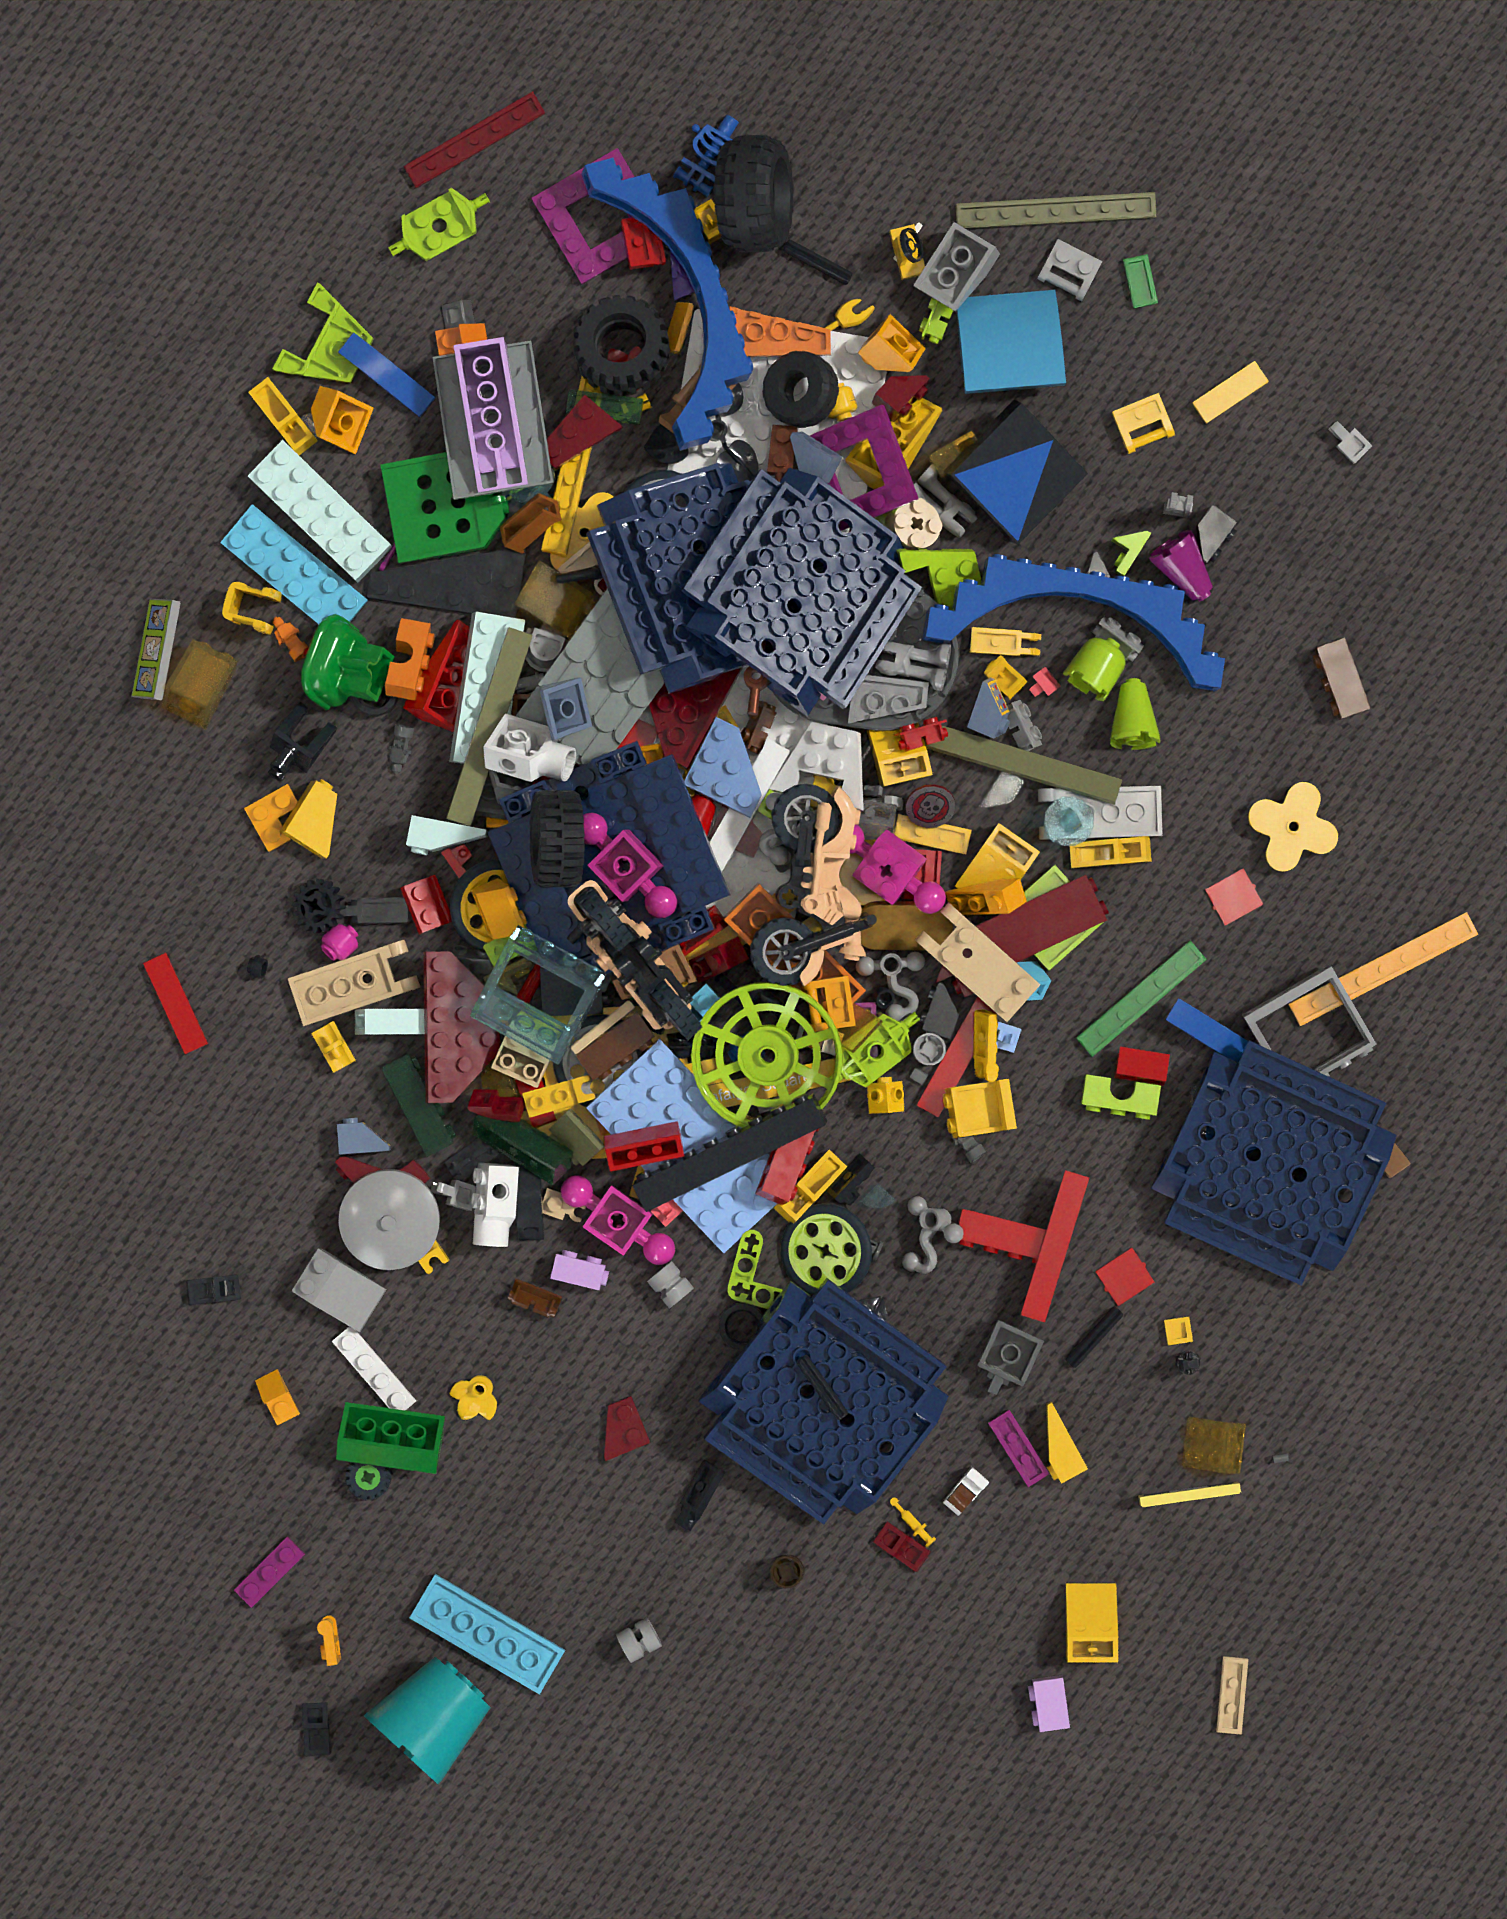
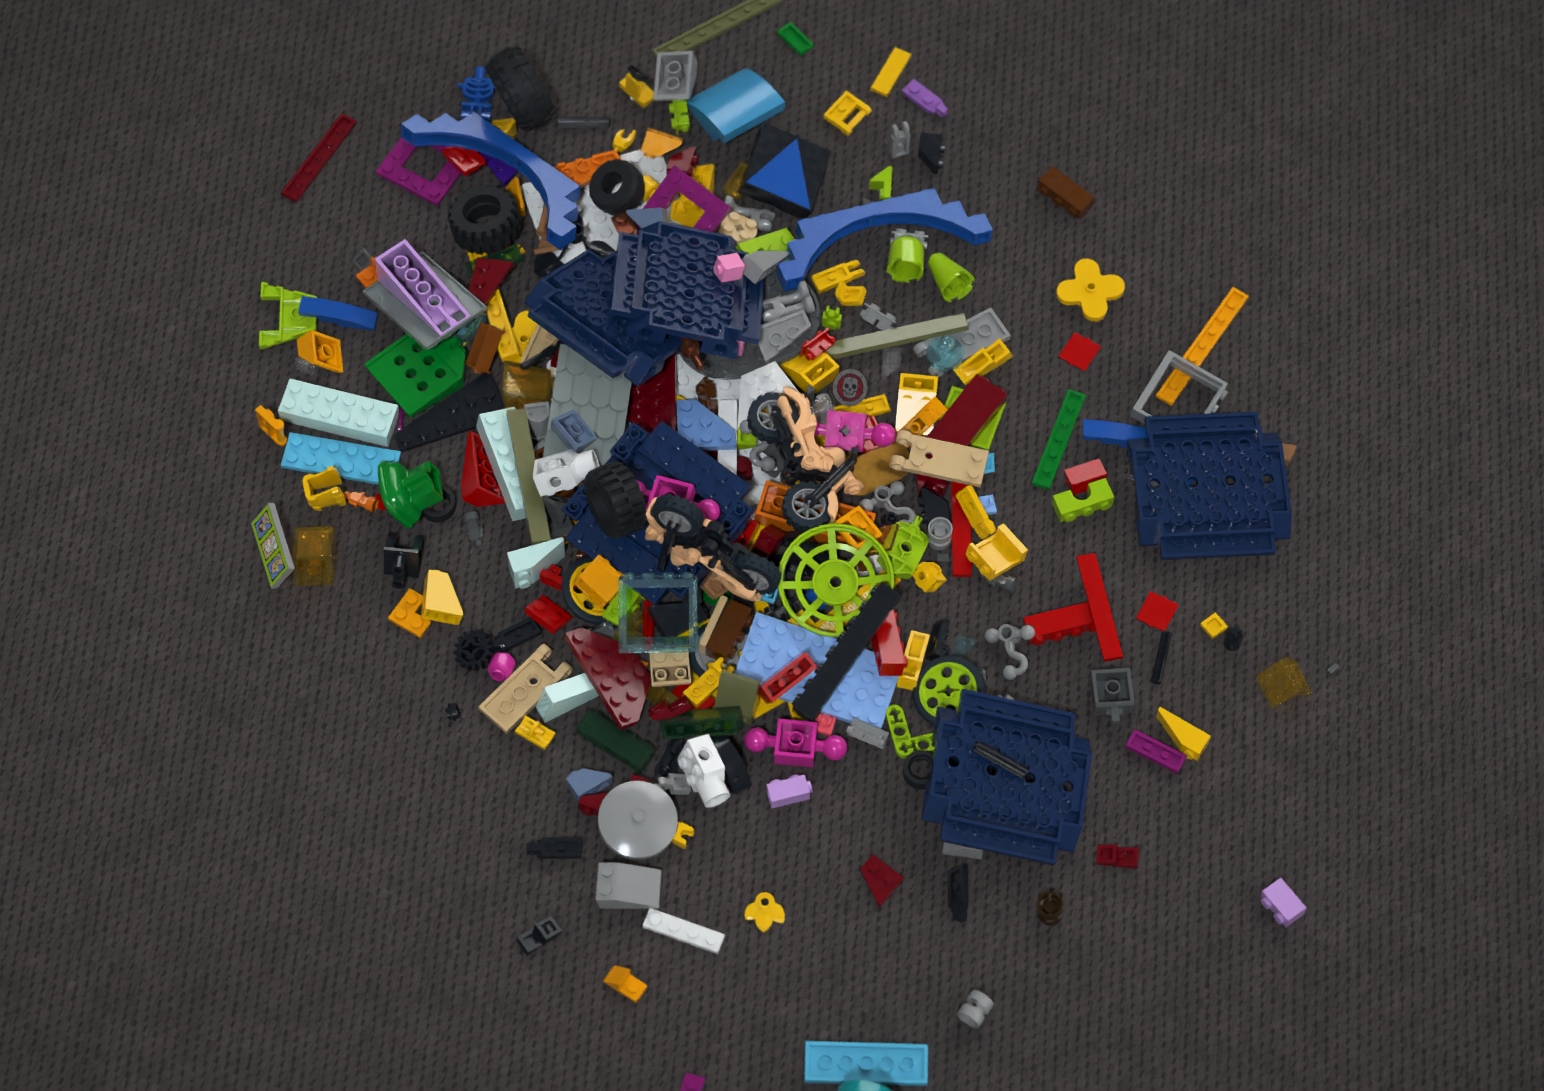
camera: 40 degrees left, 25 degrees down
(175, 1003) = (408, 764): red tile -> none
(230, 484) = (271, 426): none -> light orange plate
(283, 416) = (280, 368): yellow slope -> none
(286, 1198) = (556, 848): none -> black hinge
(378, 1477) = (720, 1008): black wheel -> none
(390, 1438) = (721, 961): green brick -> none
(405, 678) = (450, 467): orange arch -> none
(450, 207) = (329, 201): lime plate -> none
(524, 1294) = (768, 823): reddish brown hinge -> none
(555, 1206) = (751, 758): tan plate -> none
(670, 1284) = (856, 766): light grey wheel -> none
(700, 1242) = (867, 733): none -> light grey hinge
(862, 590) = (728, 267): none -> bright pink brick
(907, 600) = (762, 263): none -> light grey slope
(913, 1523) = (1116, 837): yellow piece -> none
(962, 701) = (832, 318): none -> lime plate
(965, 1491) = (1138, 795): leg -> none
(990, 711) = (854, 317): sand blue slope -> none
(1045, 682) = (878, 285): coral tile -> none
(1072, 262) = (747, 47): light grey plate -> none
(1091, 1622) = (1277, 837): yellow slope -> none
(1184, 565) = (924, 175): magenta cone -> none
(1189, 1494) = (1288, 720): light yellow tile -> none
(1232, 1695) = (1400, 835): tan tile -> none
(1249, 452) = (925, 98): none -> medium lavender hinge
(1352, 444) = (985, 63): light grey plate -> none

